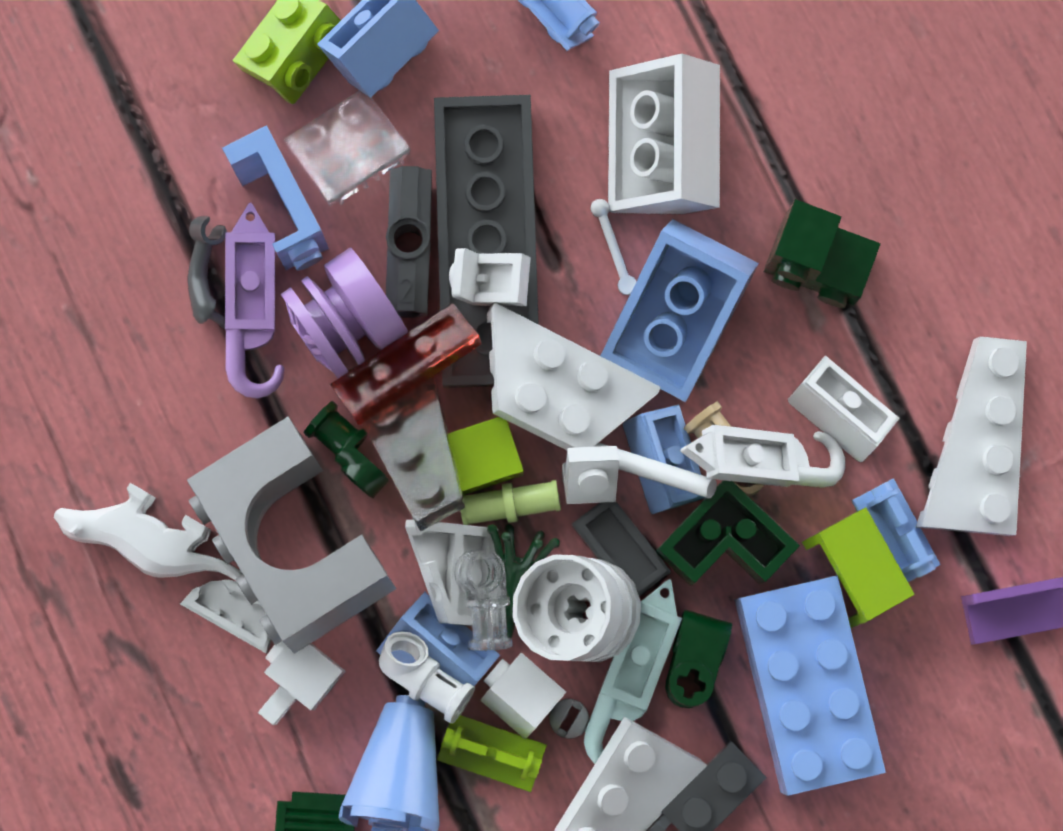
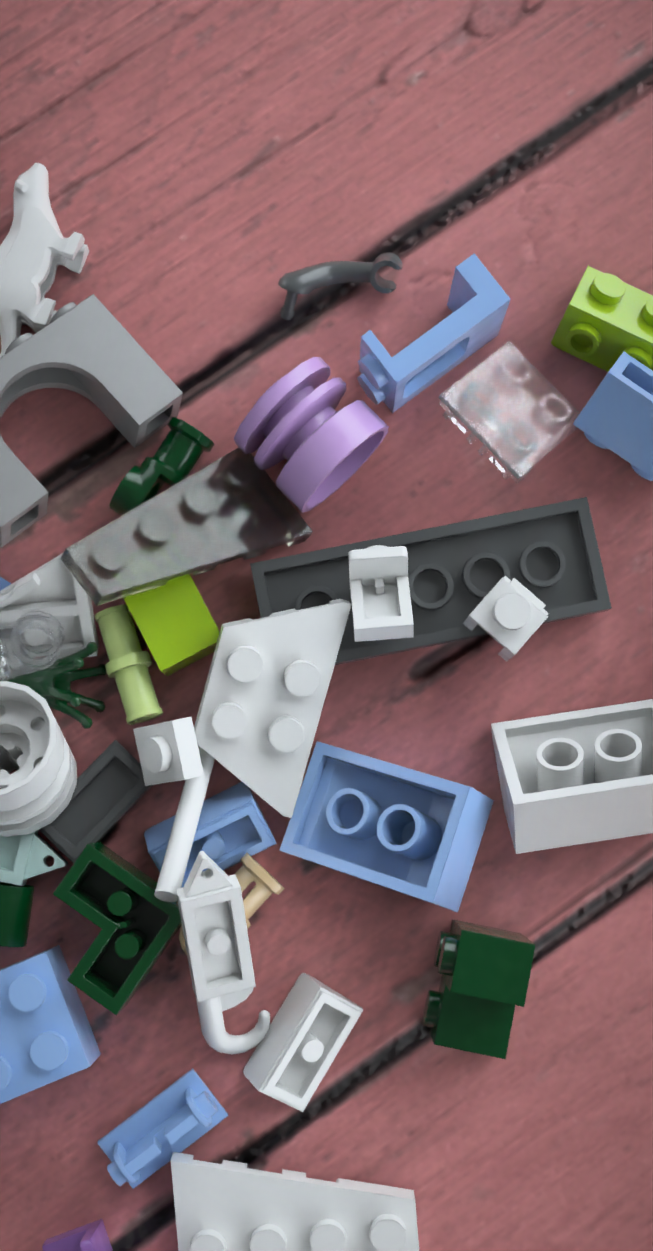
camera: 90 degrees right, 0 degrees up
(249, 300) = (313, 329): lavender plate -> none
(406, 364) = (263, 514): clear red tile -> none
(409, 212) = (448, 492): dark grey piece -> none
(525, 177) = (508, 615): none -> white window
(600, 209) = (491, 713): white hinge -> none
(863, 565) = (110, 1093): lime panel -> none

